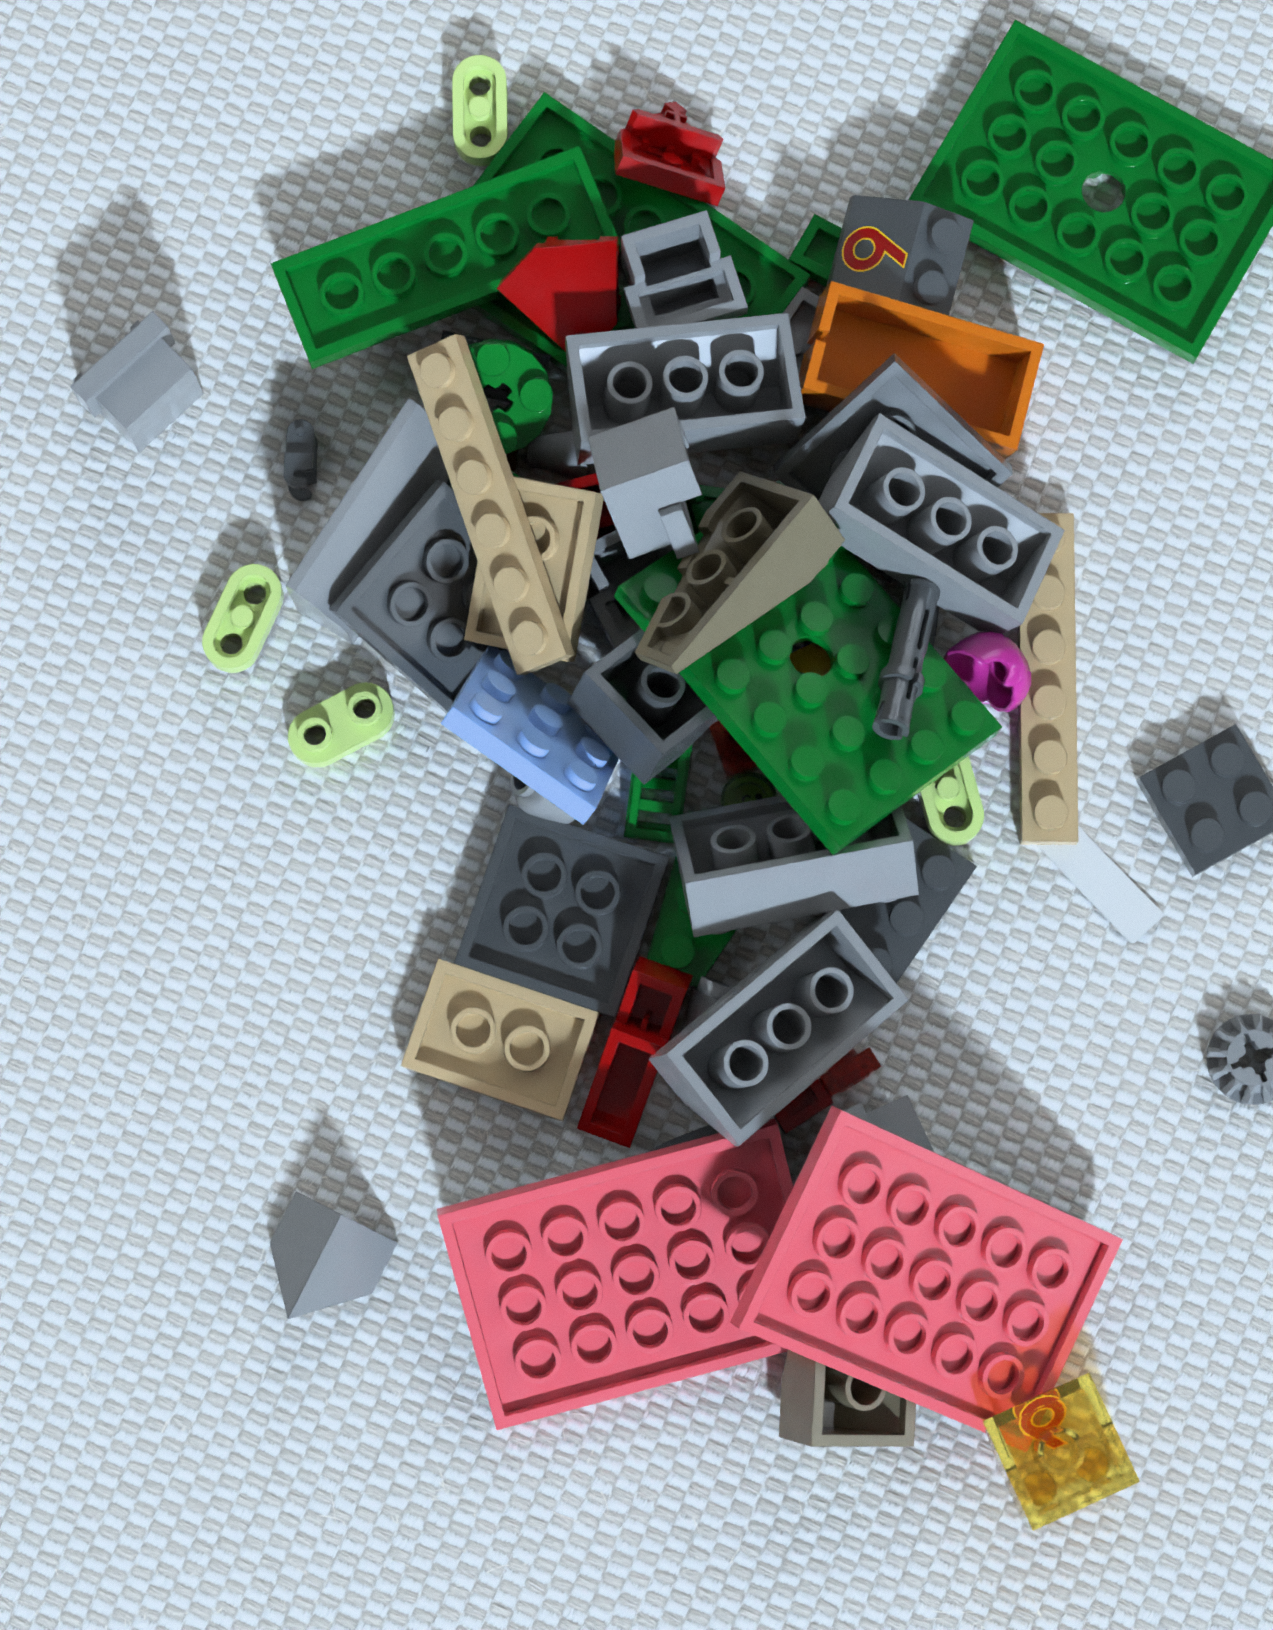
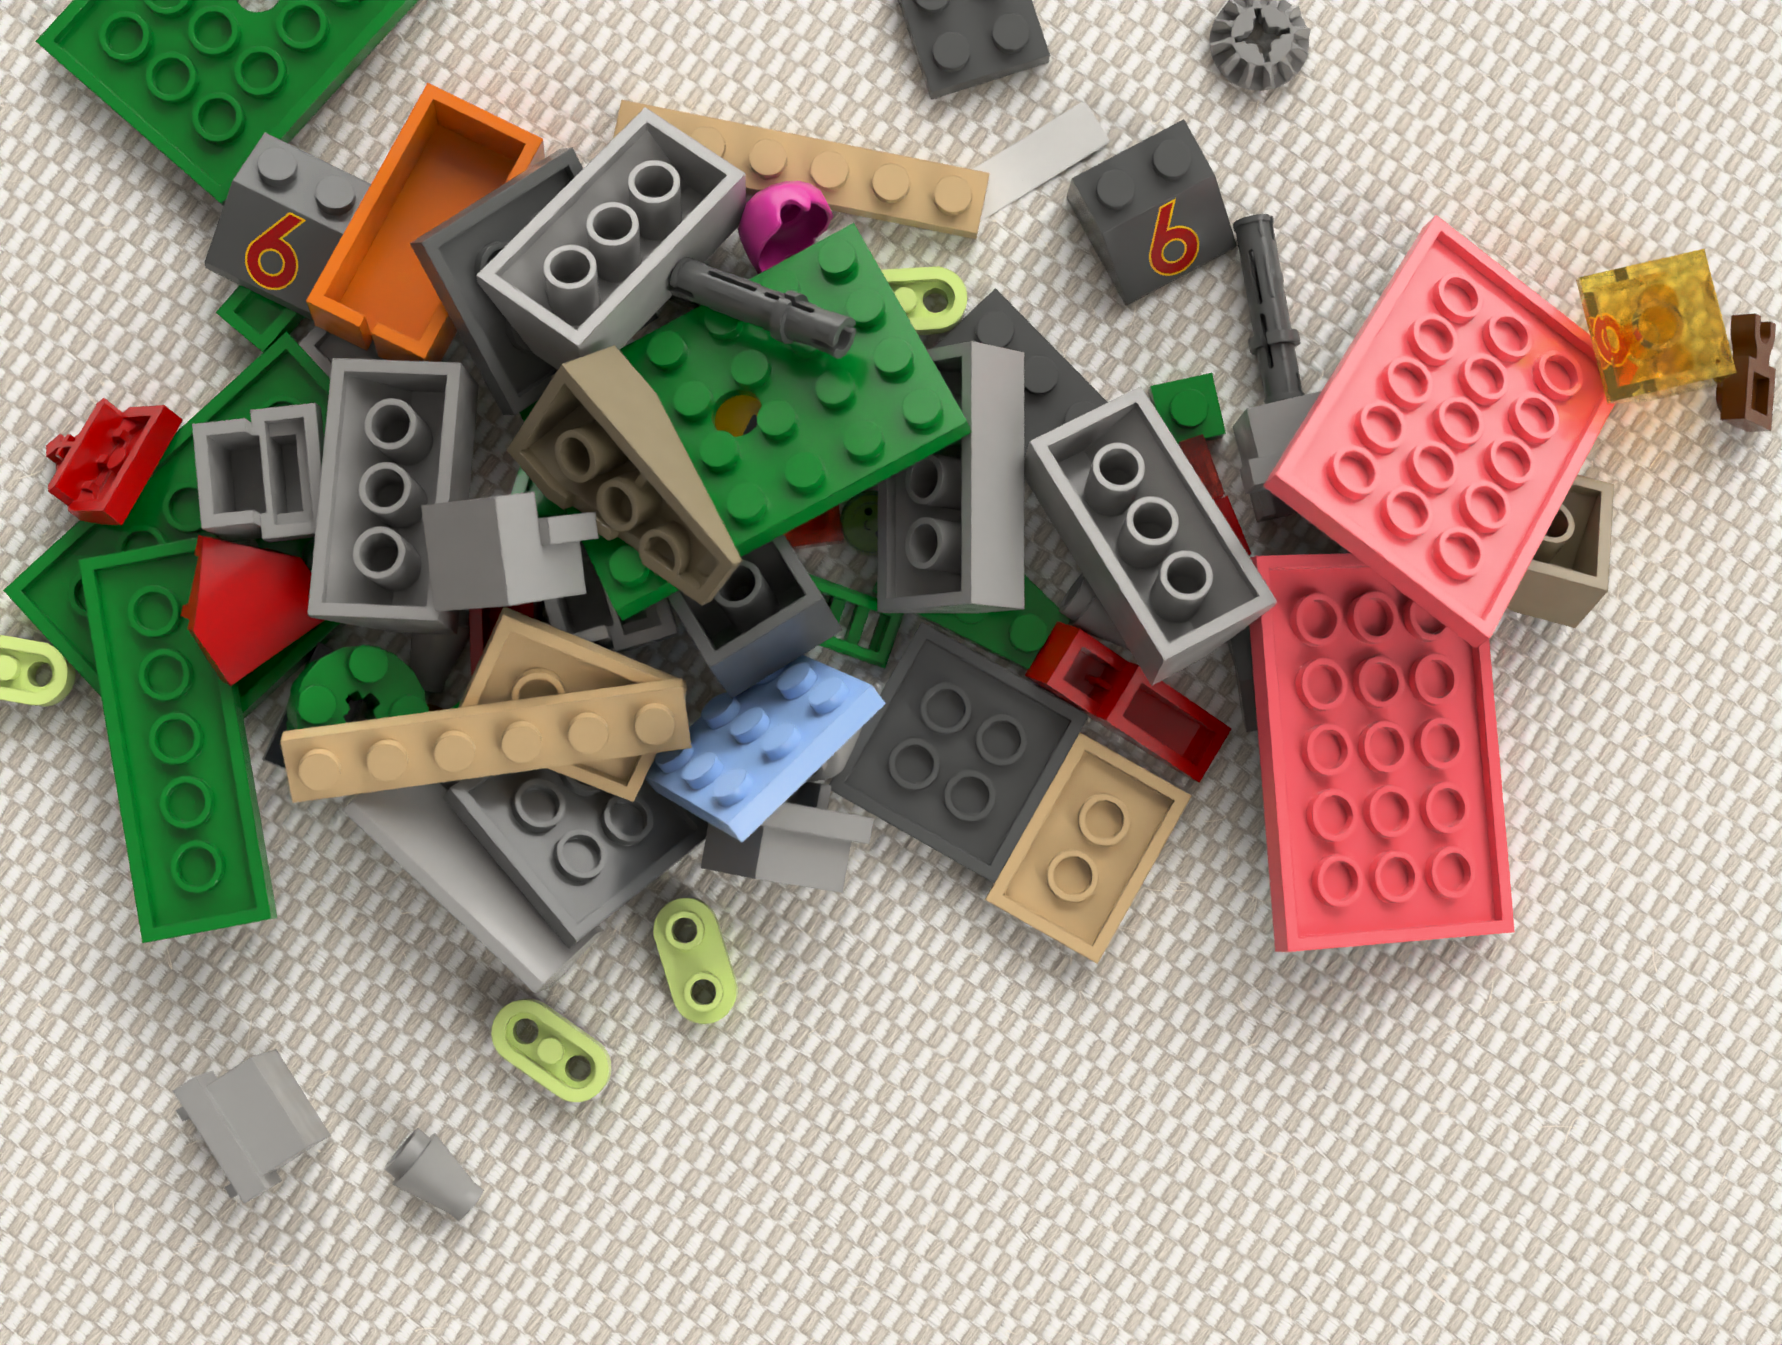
camera: 80 degrees left, 5 degrees up
(120, 542) = (433, 1174): none -> light grey cone
(300, 459) = (379, 950): dark grey piece -> none
(325, 1257) = (1290, 1087): light grey slope -> none
(455, 780) = (794, 845): none -> light grey plate
(904, 1056) = (1189, 407): none -> green plate
(989, 1117) = (1264, 284): none -> dark grey pin
(1034, 1556) = (1749, 394): none -> reddish brown plate
(1072, 990) = (1153, 212): none -> dark grey slope

